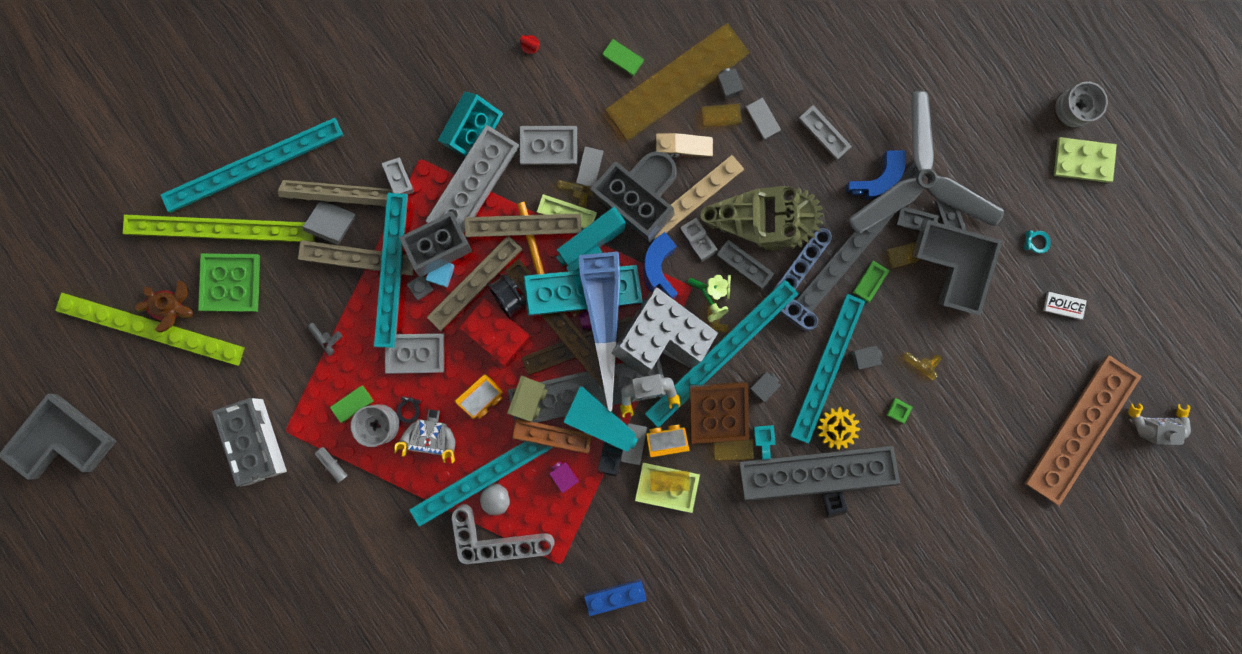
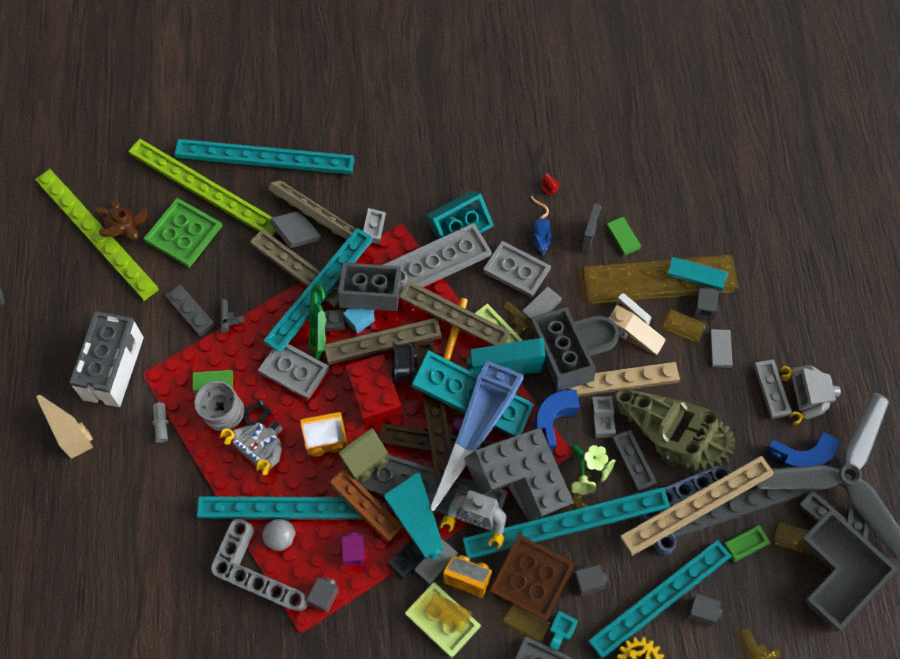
camera: 30 degrees right, 20 degrees down
(258, 521) = (69, 433): none -> tan slope
(286, 350) = (190, 310): none -> dark grey plate
(410, 303) = (317, 323): none -> green plate
(548, 94) = (541, 230): none -> blue animal
(562, 526) = (323, 594): none -> dark grey brick
(593, 70) = (591, 228): none -> dark grey tile
(670, 127) = (626, 303): none -> white tile
(708, 61) = (697, 273): none -> teal tile
(819, 278) = (696, 505): none -> tan plate
(859, 116) = (812, 389): none -> light grey torso

